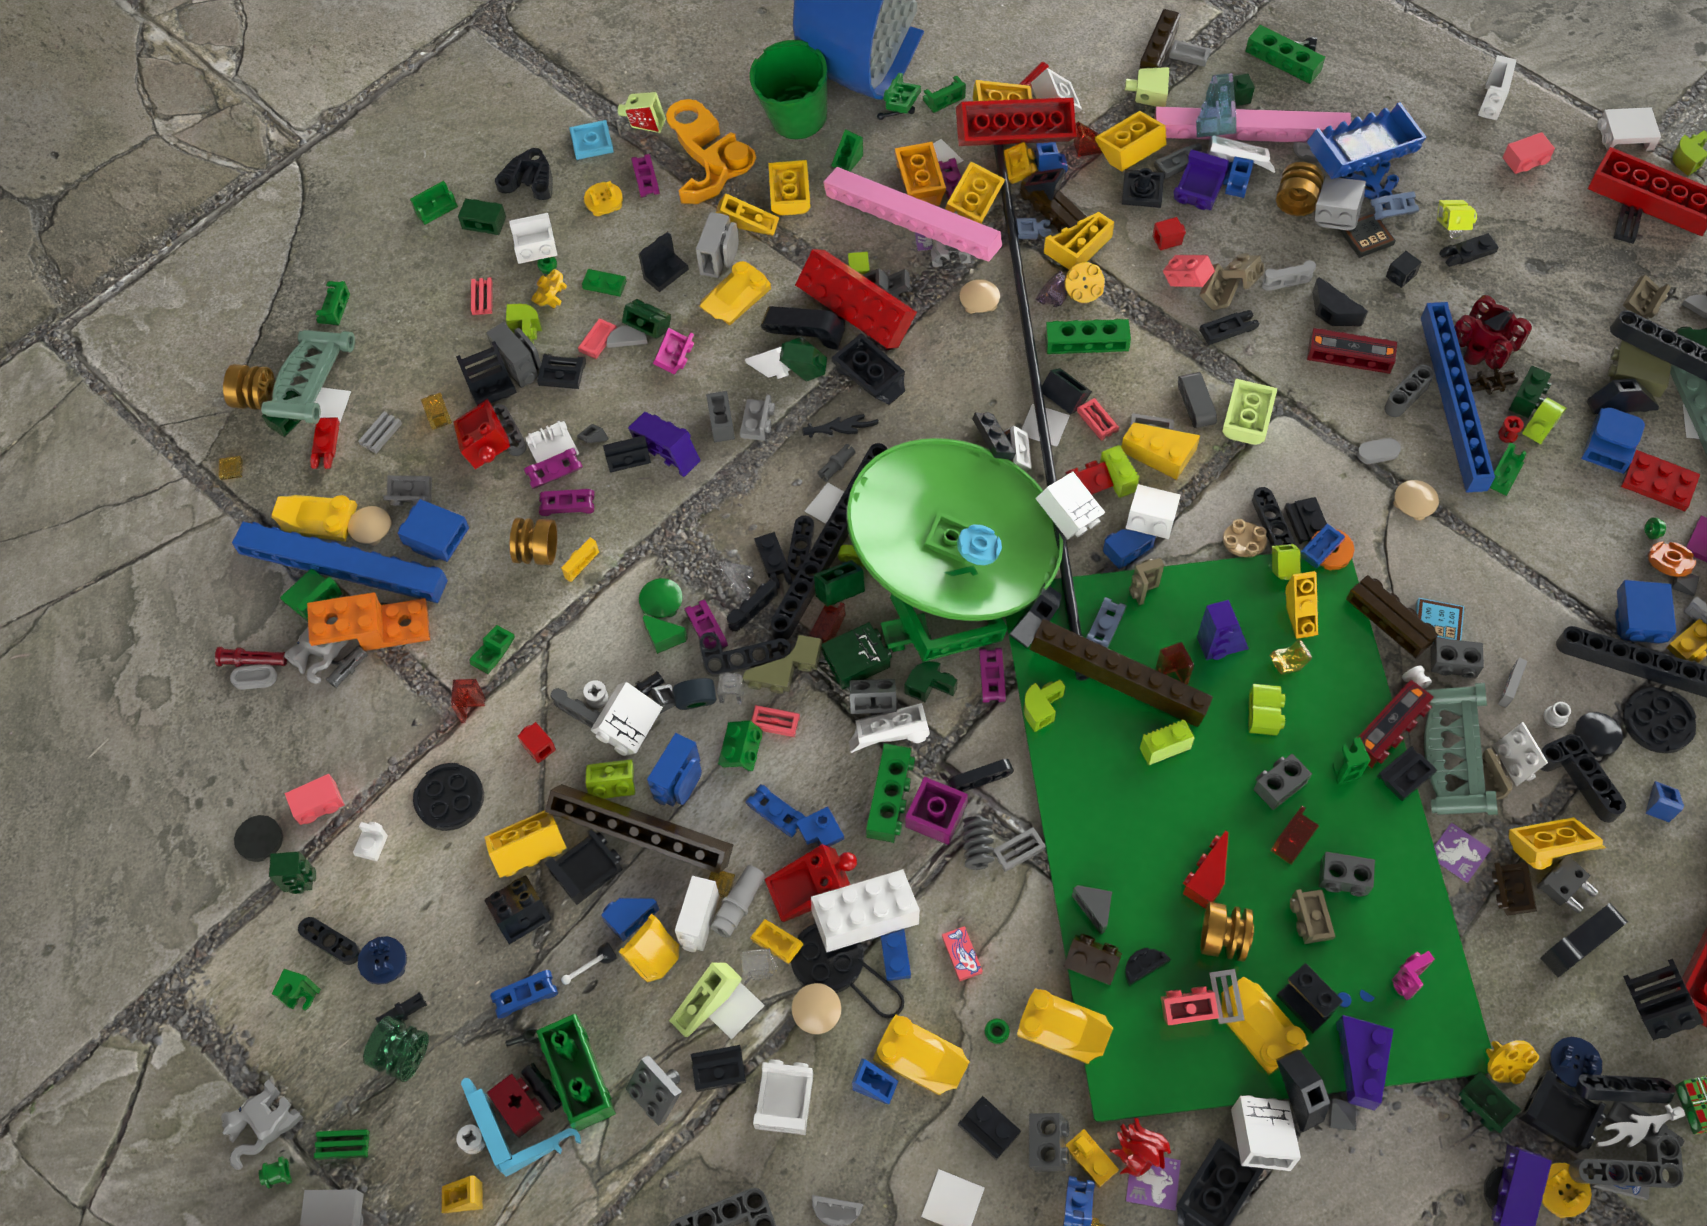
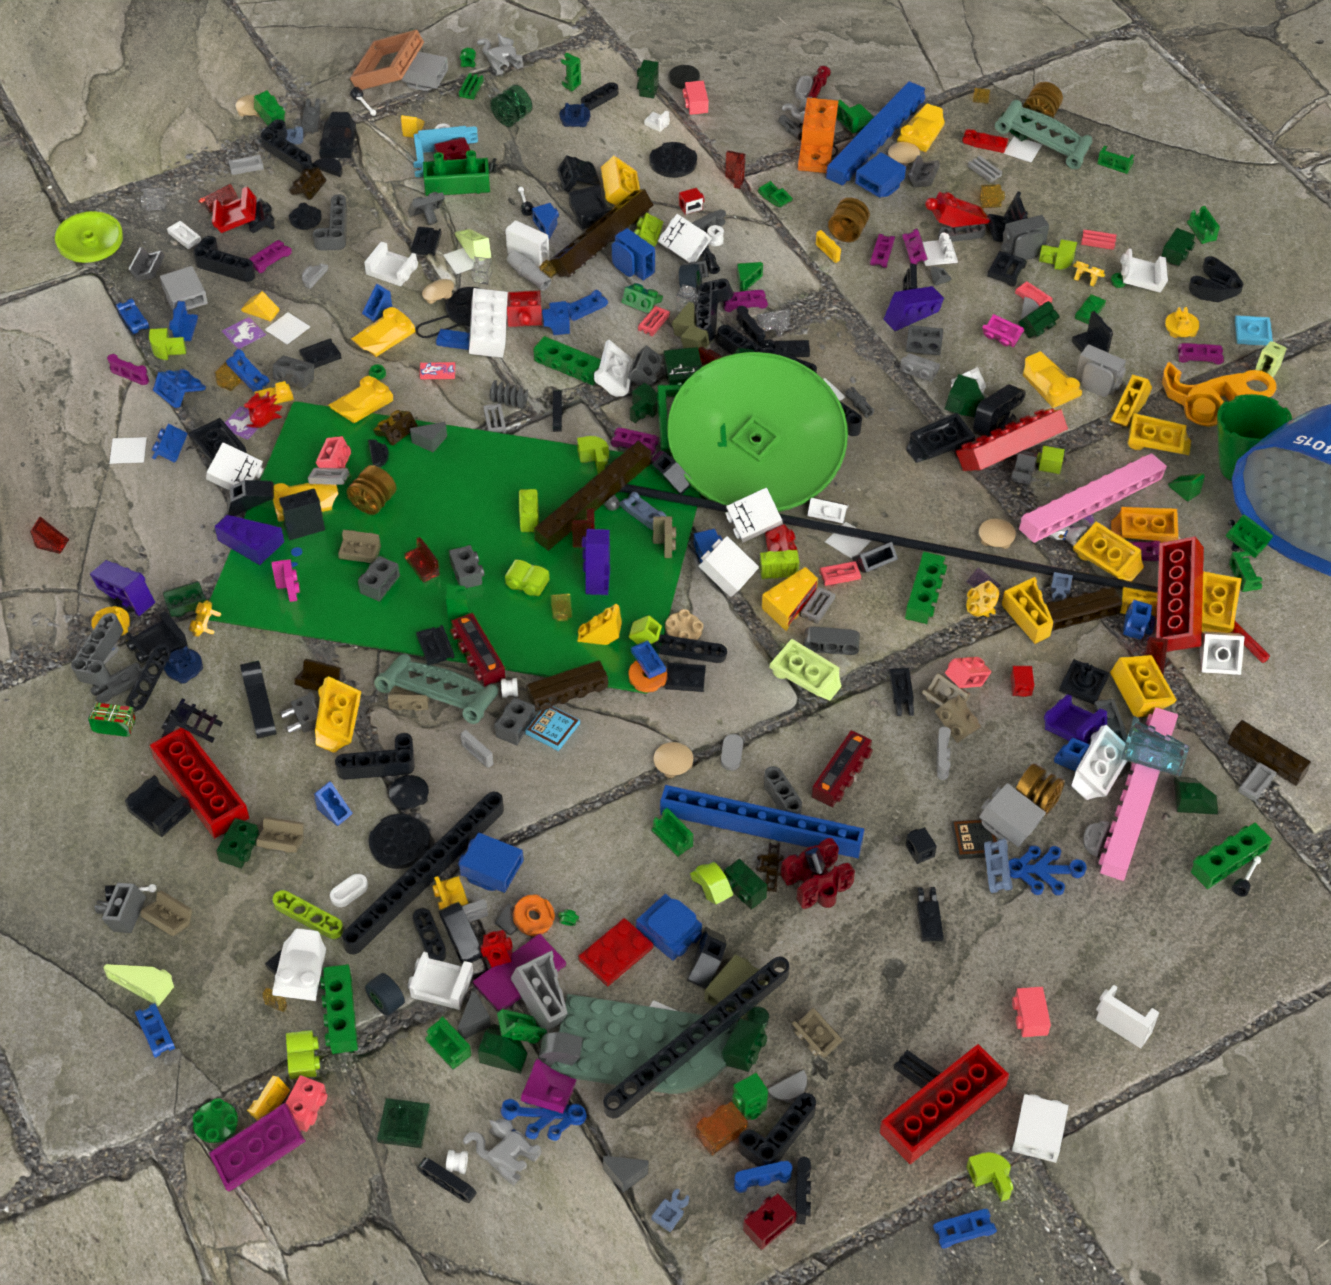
camera: 105 degrees right, 10 degrees down
(406, 1008) = (538, 118): black pin -> none
(523, 993) = (520, 168): blue plate -> none
(651, 950) = (517, 212): yellow slope -> none
(660, 598) = (779, 283): green dish -> none
(779, 941) = (493, 282): yellow plate -> none
(847, 426) = (894, 412): black piece -> none
(936, 810) = (541, 376): magenta brick -> none
(979, 545) = (733, 437): medium azure tile -> none
(993, 435) = (843, 493): black plate -> none
(1046, 180) = (1094, 592): black slope -> none
(1150, 86) = (1213, 729): yellowish green torso -> none
(1210, 877) = (419, 504): red slope -> none
(1336, 306) = (898, 774): black slope -> none
(1366, 141) = (1078, 860): blue window -> none
(1456, 216) = (966, 906): neon yellow piece -> none
(1460, 852) = (364, 666): sticker -> none
(1508, 427) = (715, 850): red bush -> none
(1520, 754) = (404, 719): white hinge -> none
(1555, 720) = (437, 771): white piece -> none
(1638, 1130) = (121, 675): white piece -> none

